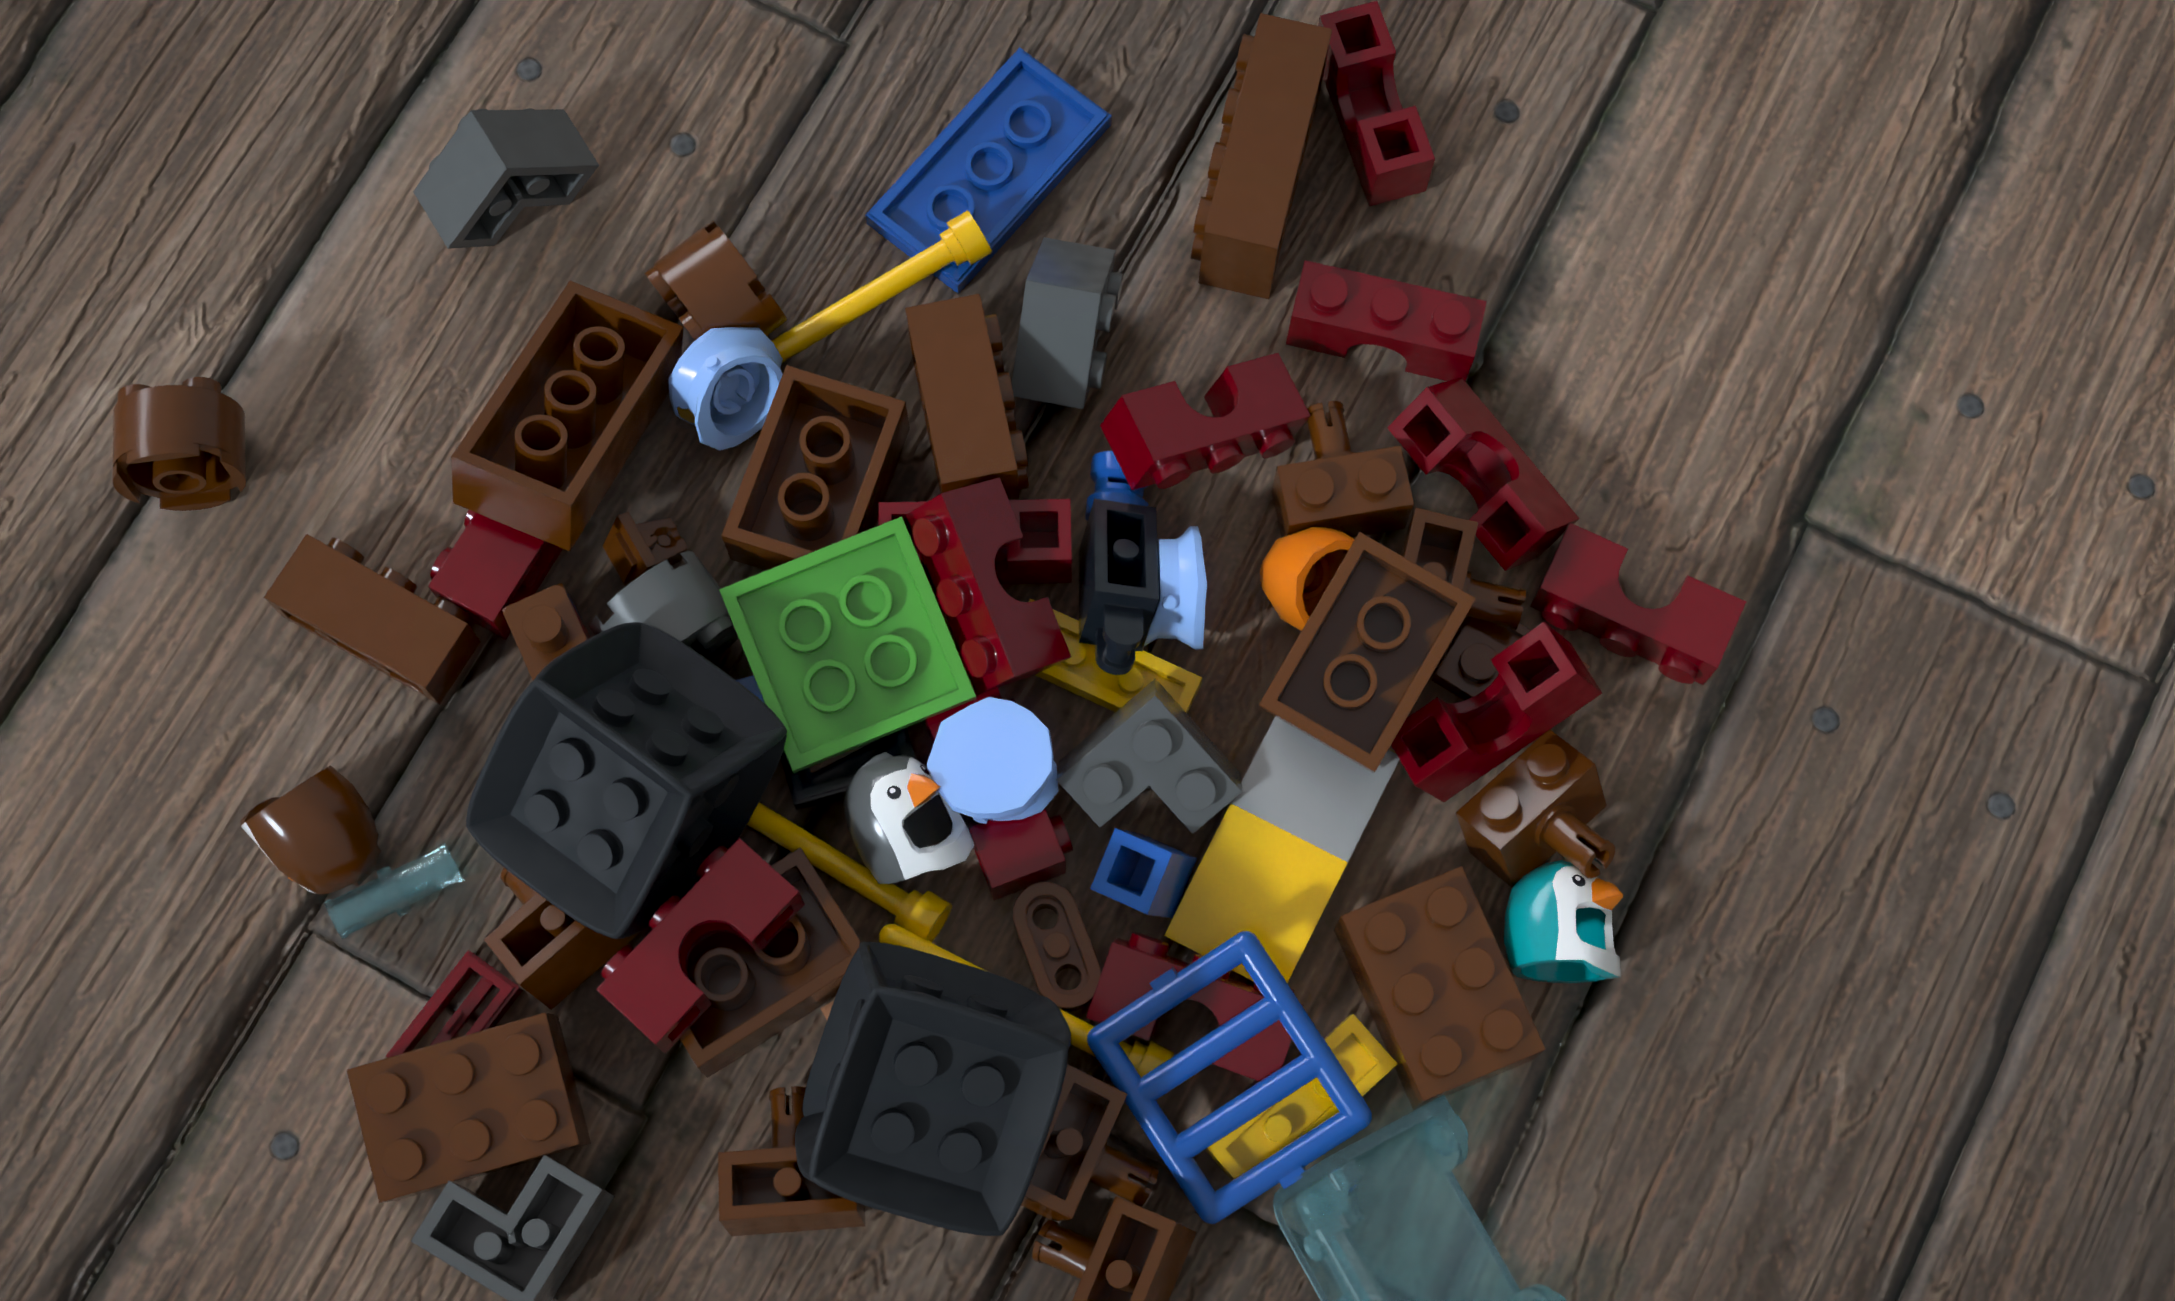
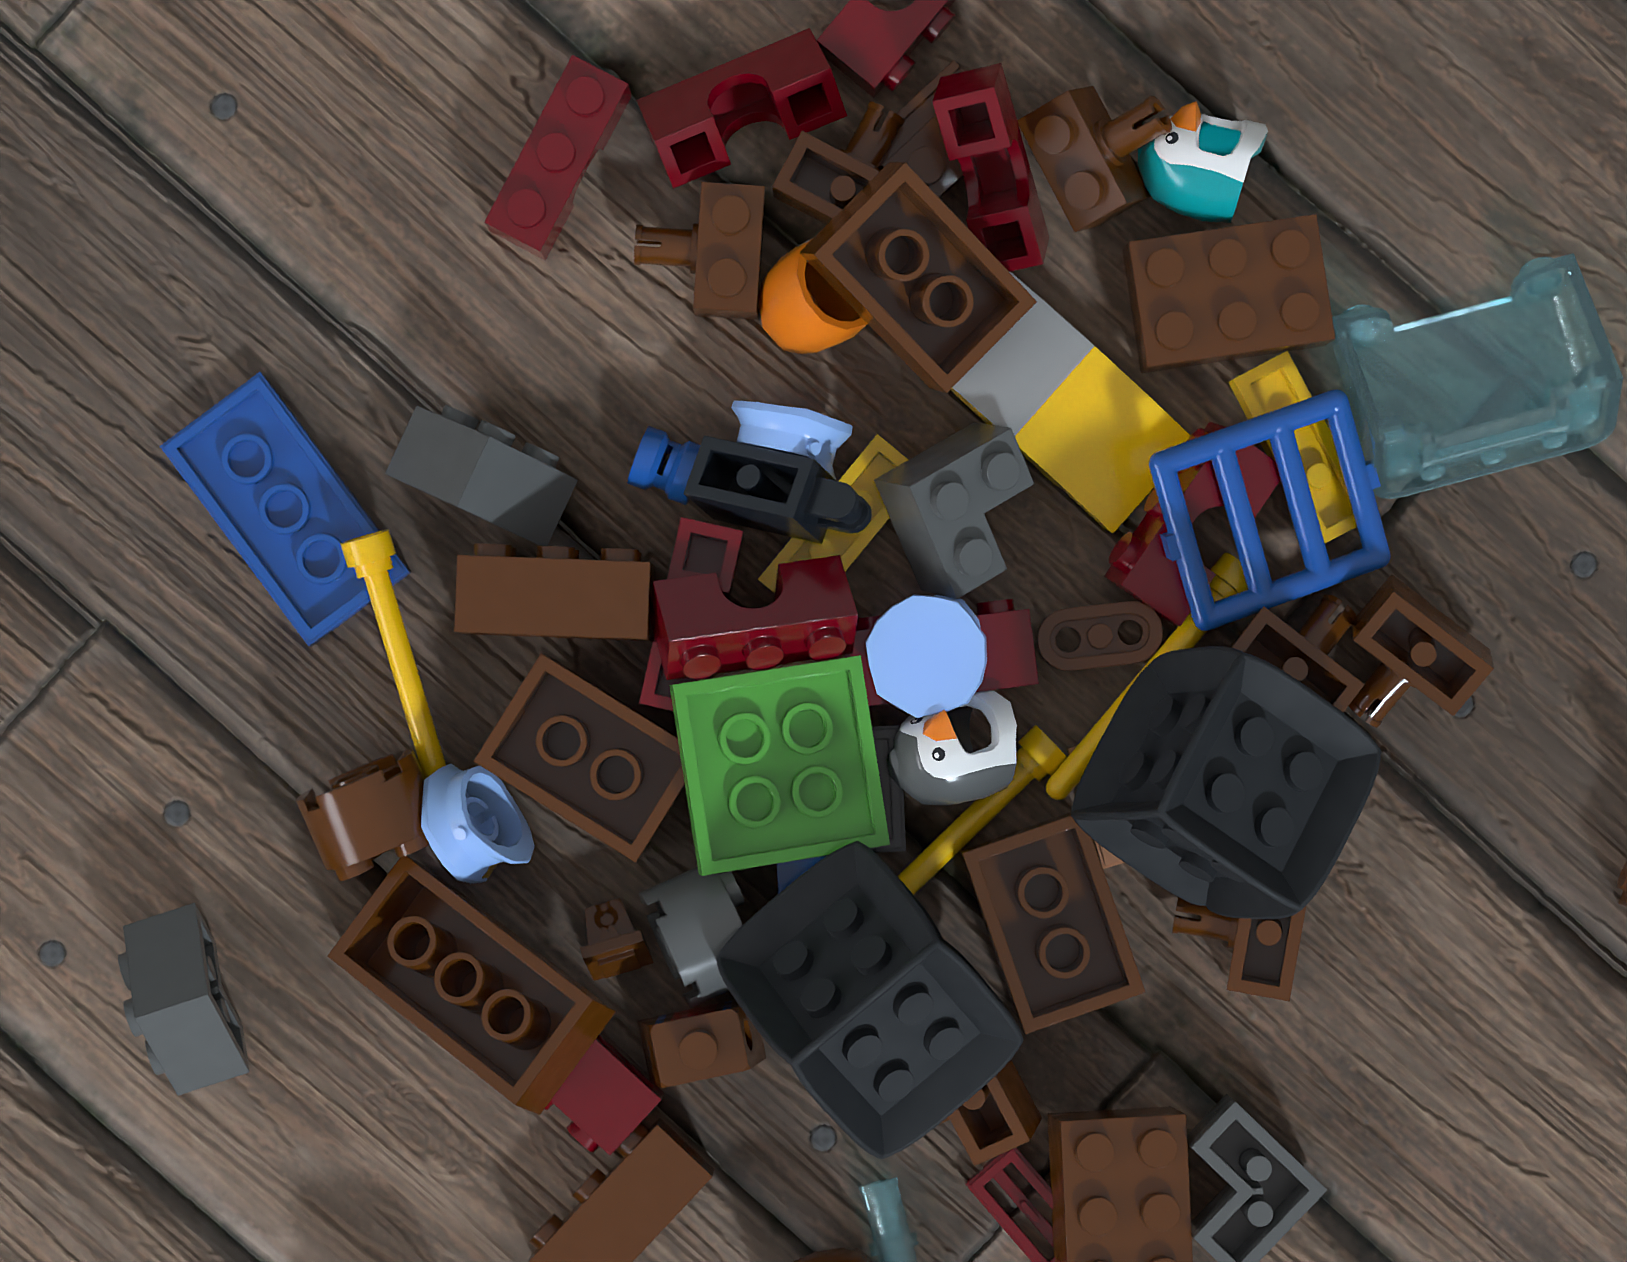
camera: 75 degrees left, 15 degrees up
(734, 896) = (1068, 1015): dark red arch -> none
(1143, 873) = (1056, 538): blue brick -> none
(1166, 440) = (636, 412): dark red arch -> none
(1259, 155) = (357, 230): reddish brown brick -> none
(1382, 137) = (295, 109): dark red arch -> none

